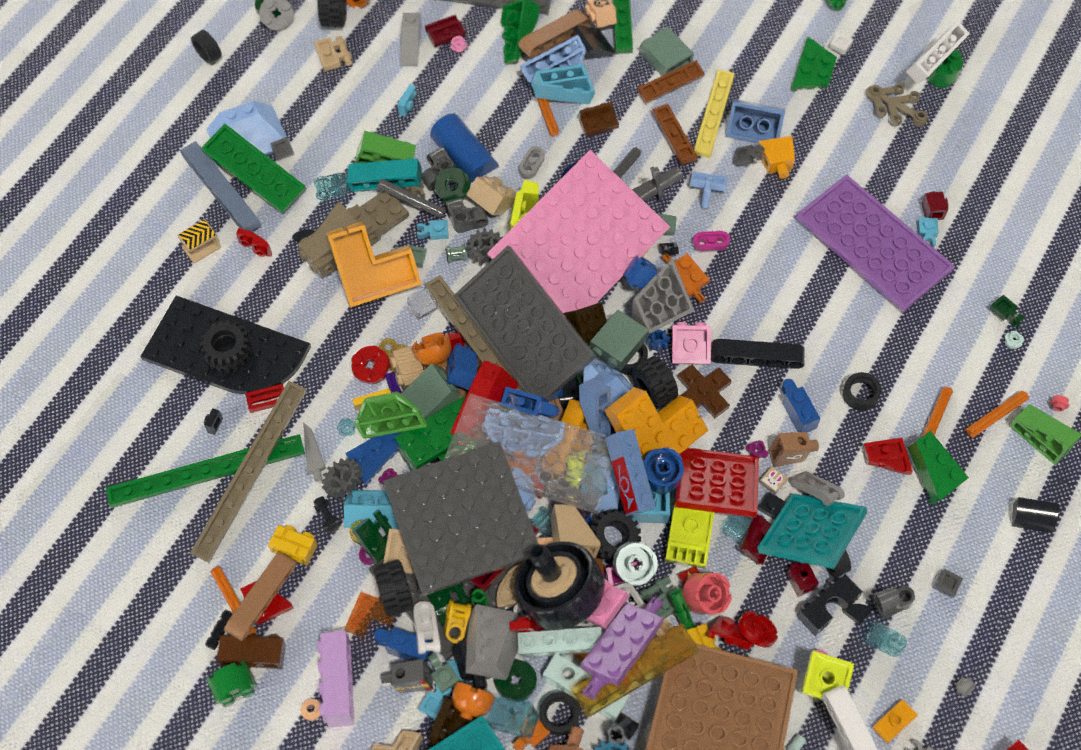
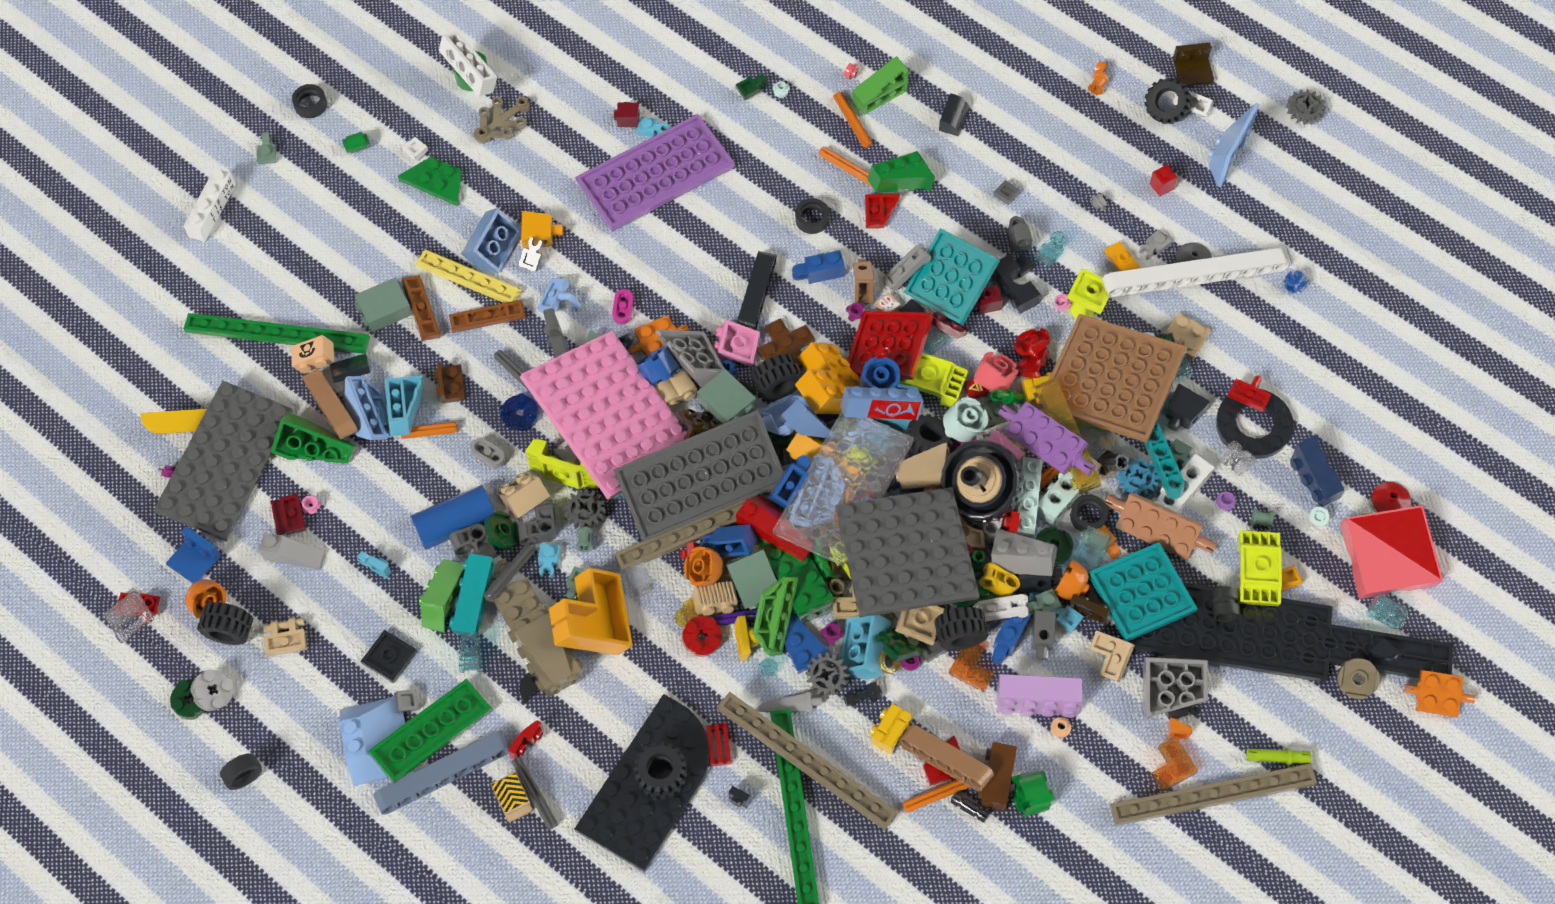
camera: 80 degrees left, 0 degrees up
(207, 260) = (534, 793): none -> dark grey axle
(325, 130) = (389, 656): none -> black tile
(622, 296) = (676, 389): none -> tan brick

